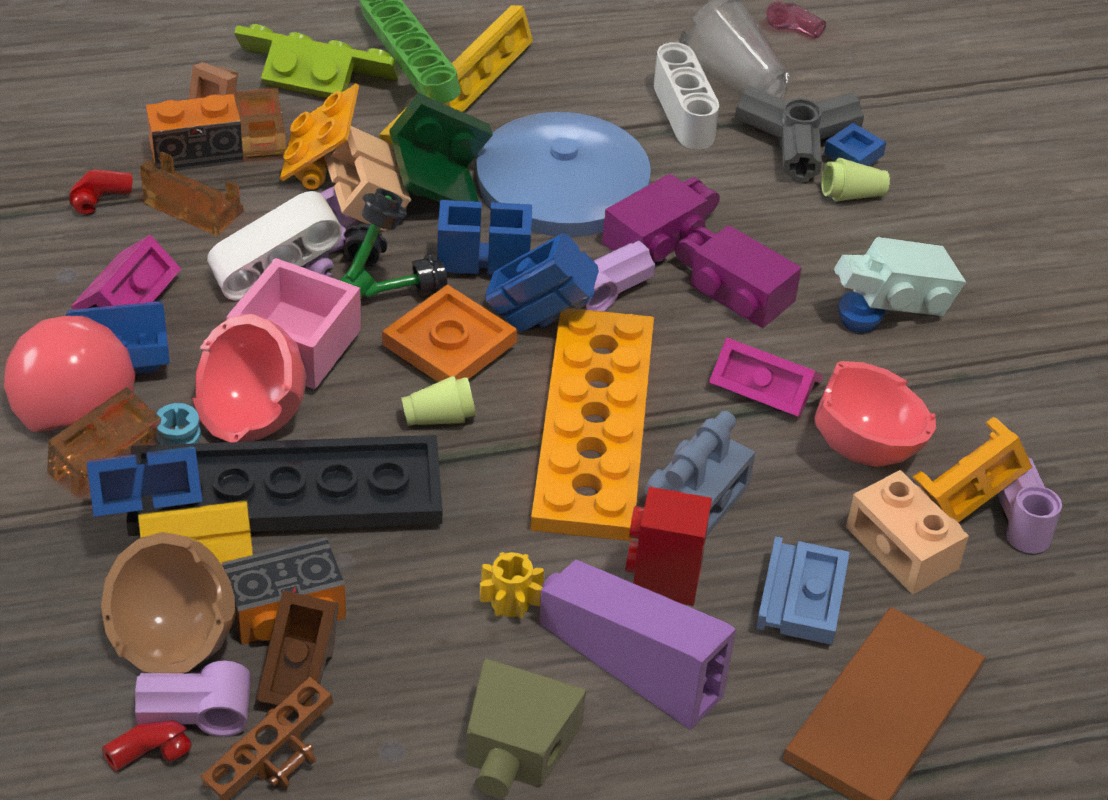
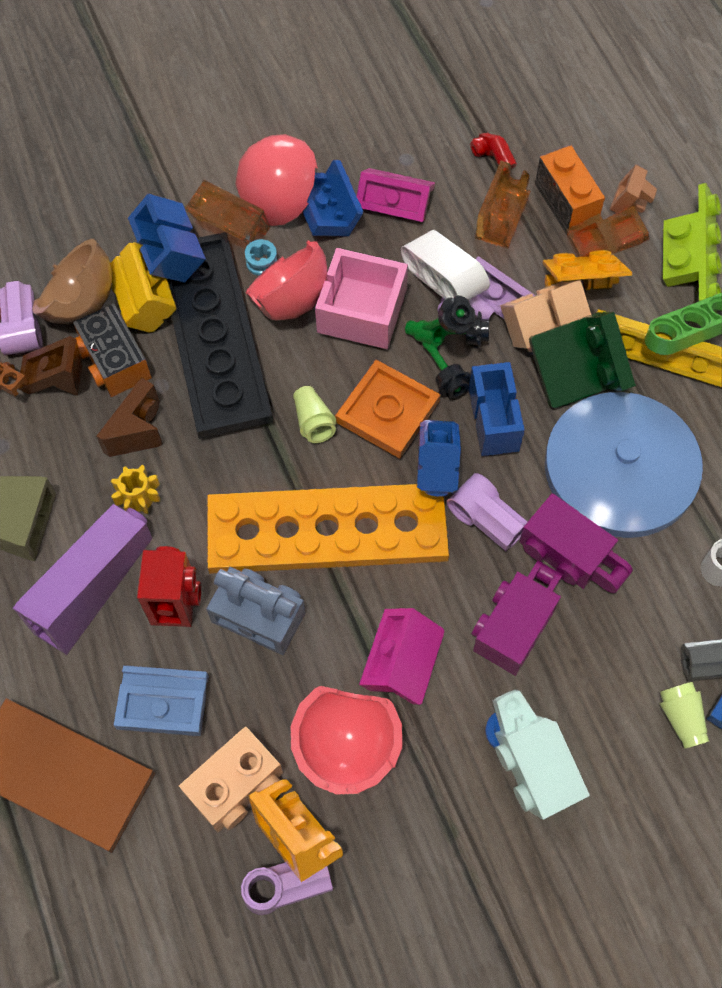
camera: 85 degrees right, 20 degrees up
(406, 583) = (128, 427): none -> reddish brown slope

